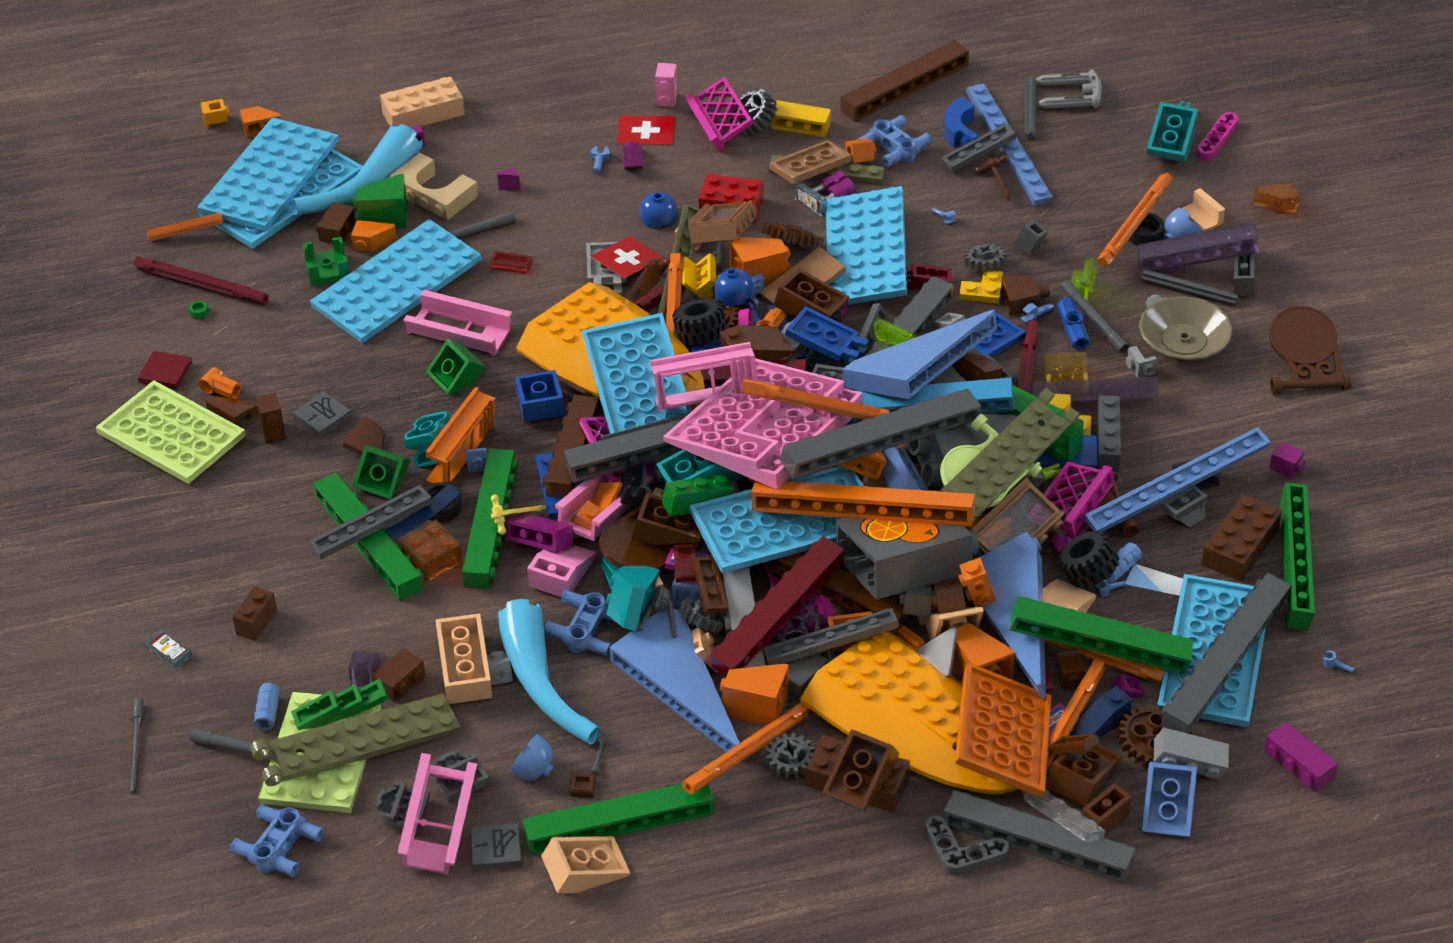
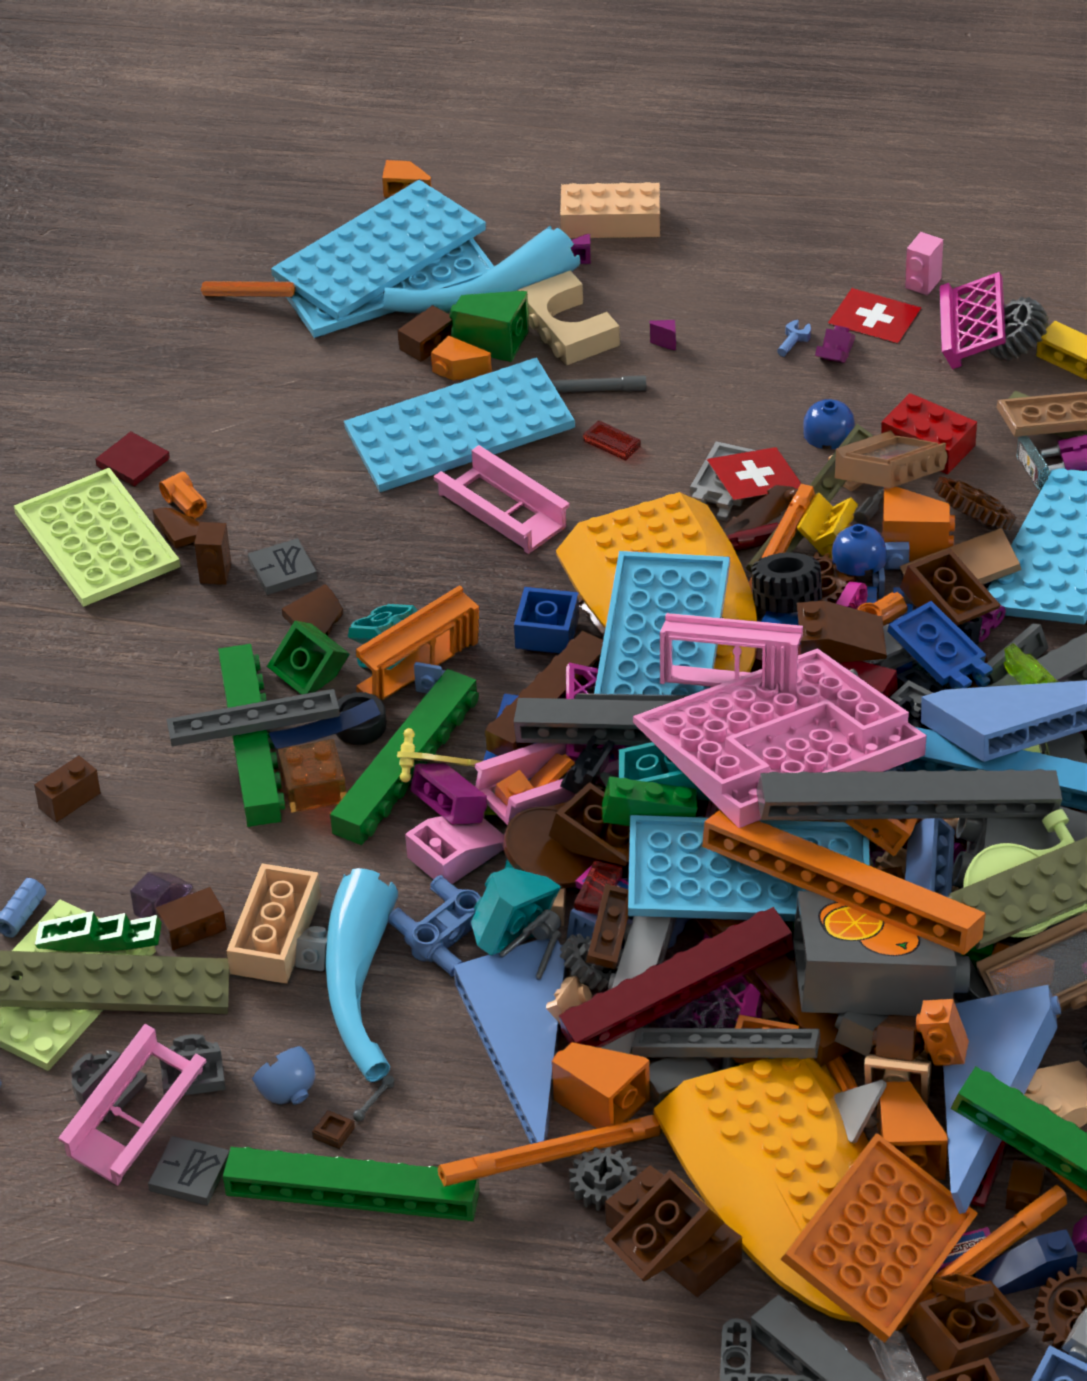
camera: 25 degrees right, 0 degrees up
(198, 310) = (211, 395): green tile -> none
(200, 280) = (232, 360): dark red piece -> none
(214, 112) = (359, 155): light orange brick -> none
(328, 265) = (387, 382): green panel -> none
(455, 367) = (468, 554): green slope -> none
(583, 862) = (278, 1227): light nougat slope -> none
(810, 400) = (843, 725): orange piece -> none

